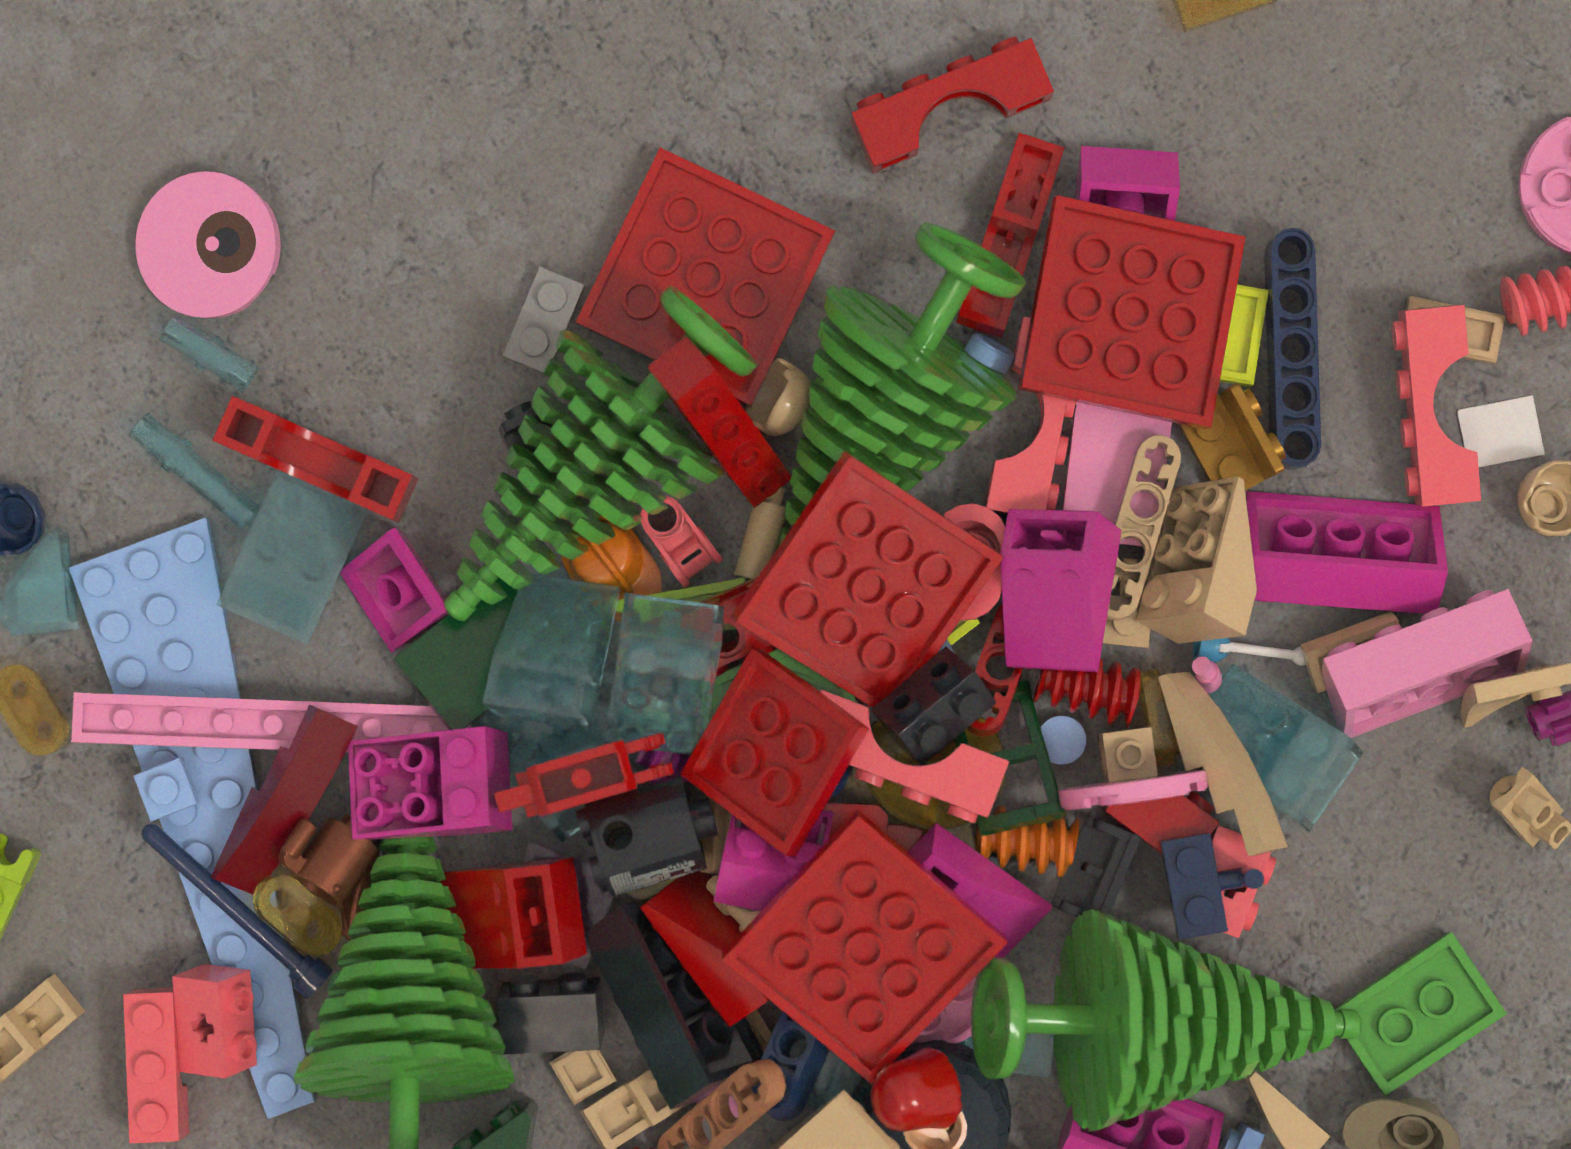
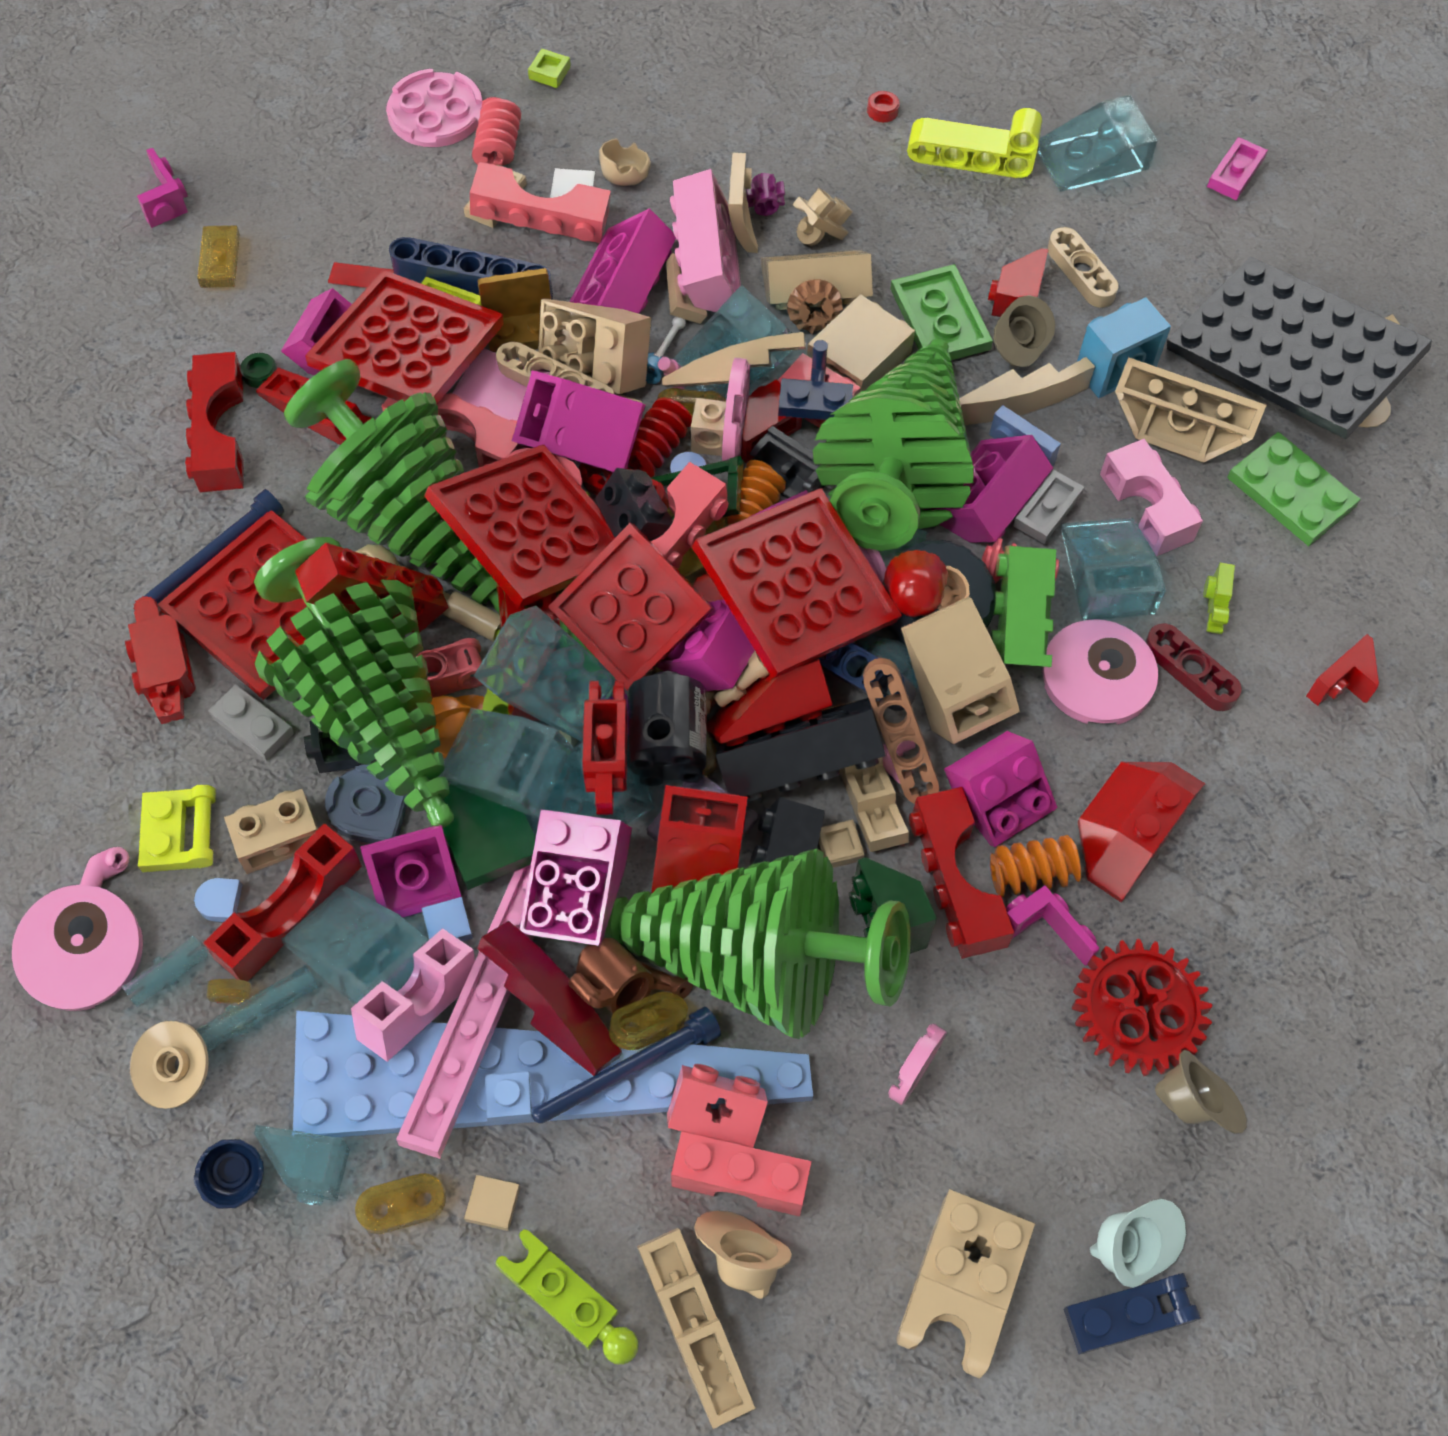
camera: 75 degrees left, 25 degrees down
(60, 805) = (492, 1203): none -> tan tile
(79, 1087) = (743, 1251): none -> tan piece
(89, 399) = (154, 1064): none -> tan dish
(201, 430) = (228, 991): none -> clear yellow tile
(244, 652) = (392, 1018): none -> bright pink arch
(311, 376) = (218, 898): none -> light blue tile
(312, 227) = (104, 866): none -> bright pink arm
(357, 646) = (449, 916): none -> light blue tile
(379, 277) = (164, 829): none -> neon yellow plate
(407, 408) = (271, 829): none -> tan brick
(462, 494) = (364, 807): none -> sand blue tile
(586, 184) = (161, 660): none -> red hinge
(838, 216) = (262, 504): none -> dark blue piece
(1056, 120) = (257, 369): none -> dark green tile
(1257, 193) = (354, 274): none -> red sticker
(1323, 918) = (865, 342): none -> tan brick
(1366, 839) = (813, 292): none -> nougat gear
(1430, 826) = (844, 269): none -> tan slope
(1493, 1114) = (1018, 280): none -> slope

